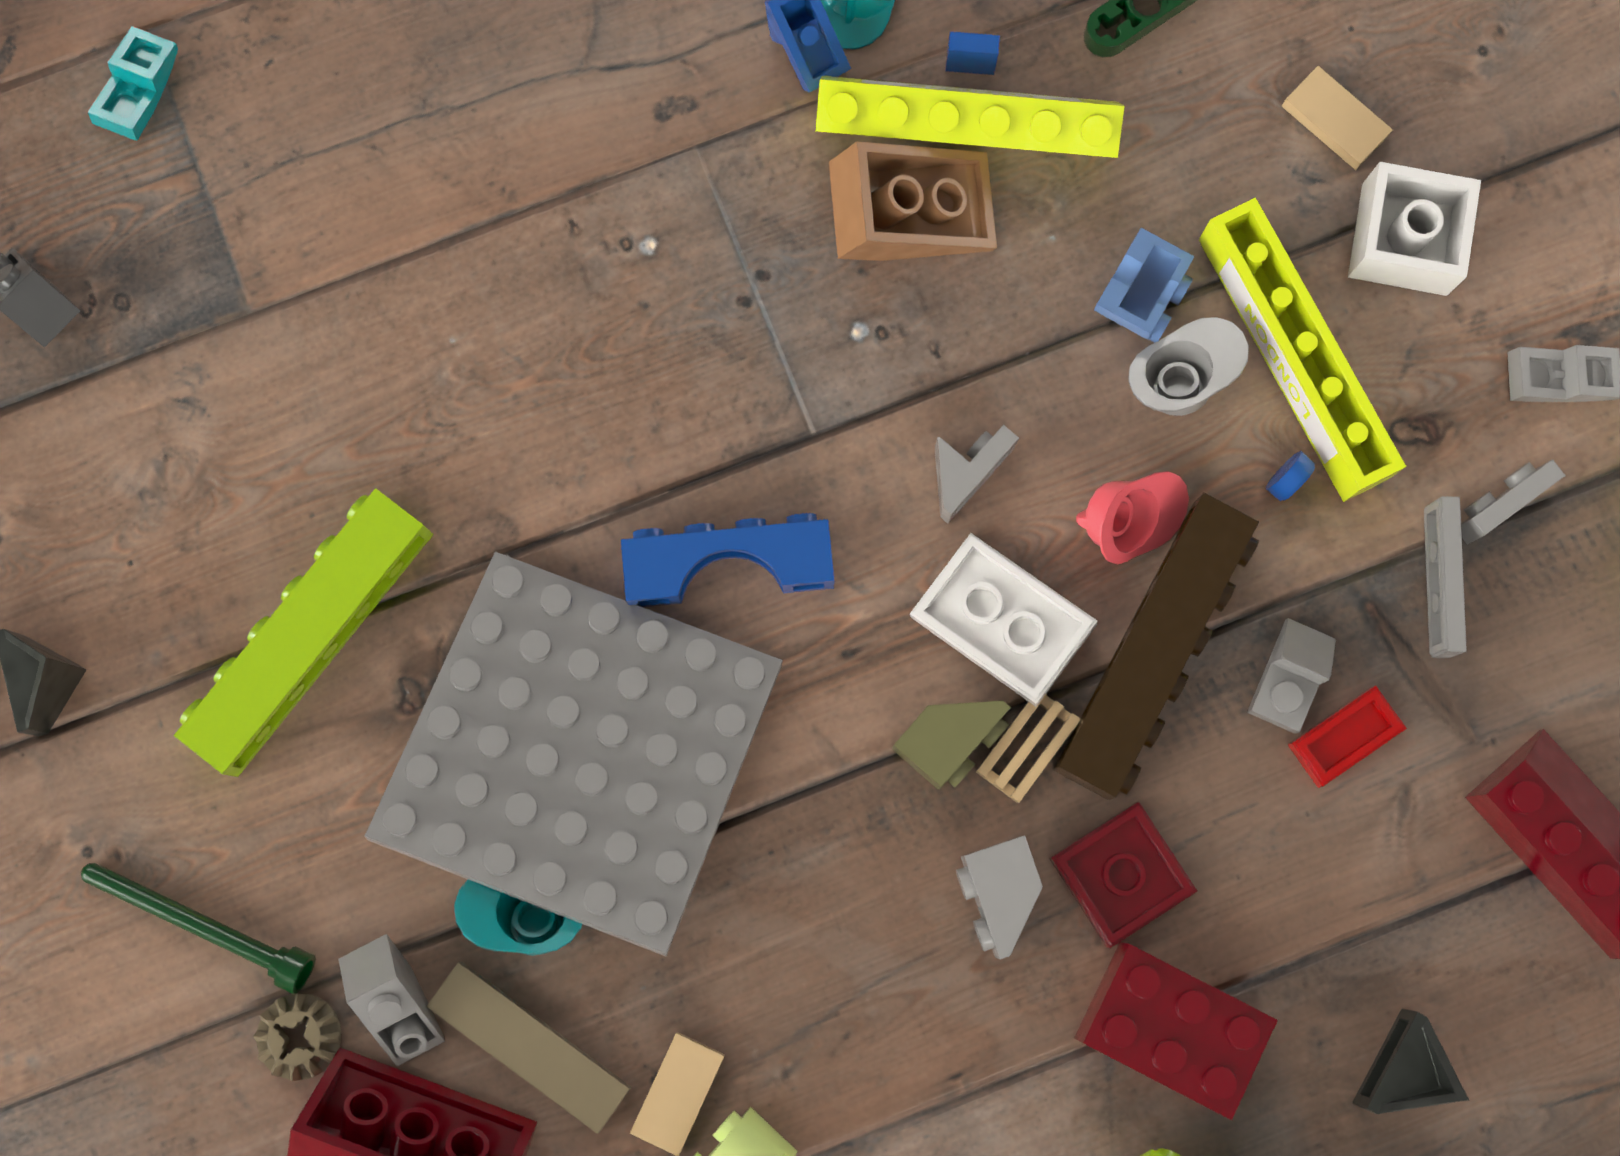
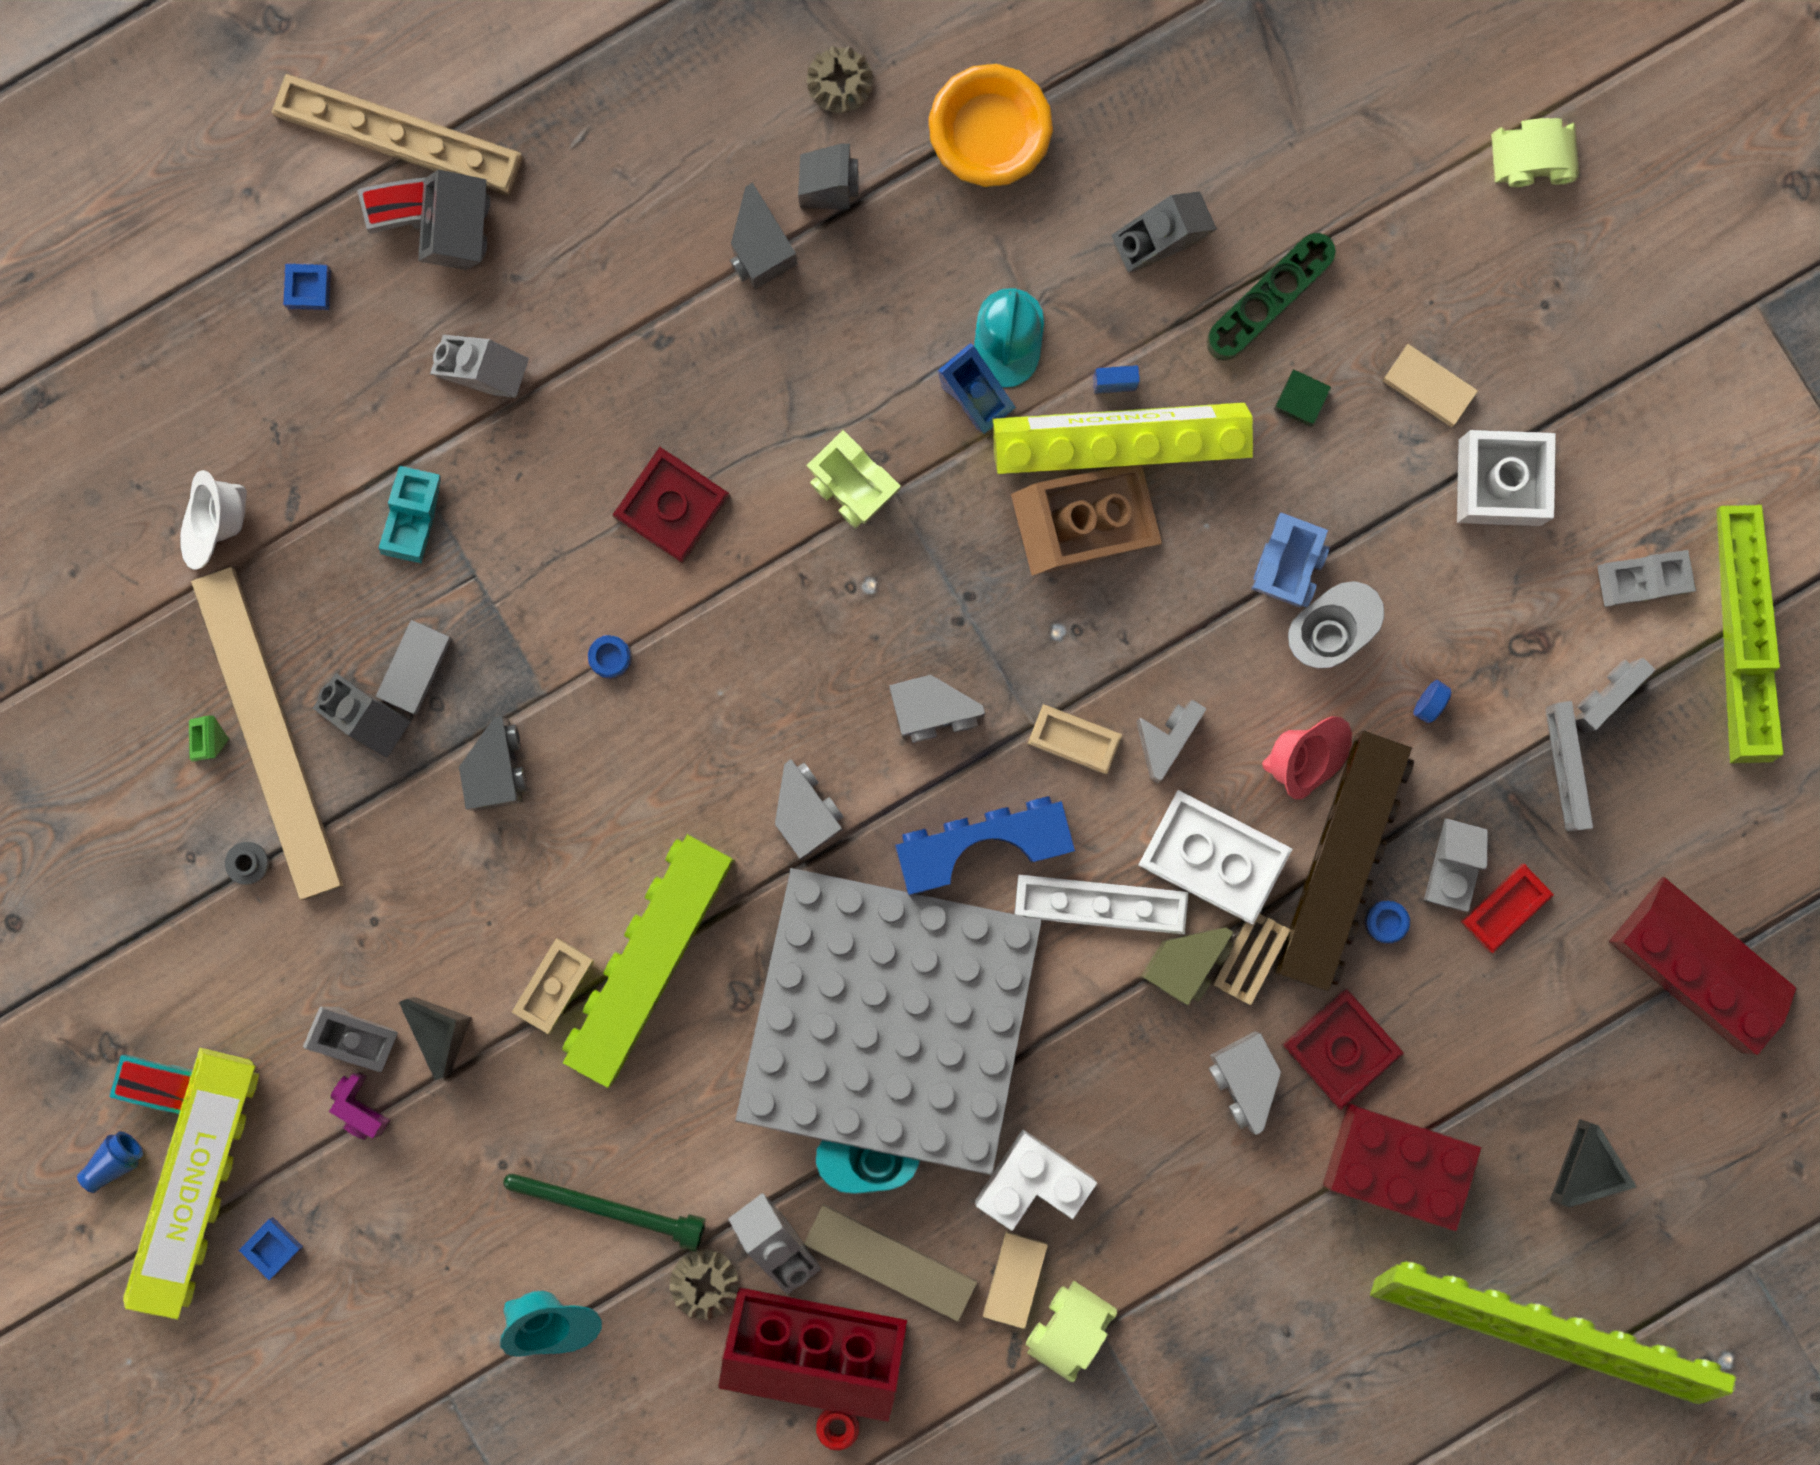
camera: 10 degrees left, 5 degrees up
(92, 1055) = (544, 1326): none -> teal piece
(102, 254) = (413, 667): none -> light grey tile
(164, 380) = (491, 770): none -> dark grey slope
(186, 645) = (553, 986): none -> tan plate
(331, 277) = (609, 656): none -> blue tile
(435, 119) = (671, 505): none -> dark red tile
(517, 489) = (801, 813): none -> light grey slope
(645, 116) = (852, 479): none -> yellowish green cylinder
(694, 388) = (930, 705): none -> light grey slope
(723, 960) = (1029, 1171): none -> white brick
(857, 456) = (1074, 739): none -> tan tile
(858, 654) = (1101, 904): none -> white tile
(1186, 109) = (1302, 398): none -> dark green tile
(1199, 729) = (1387, 921): none -> blue tile
(1300, 350) = (1426, 597): neon yellow brick -> none

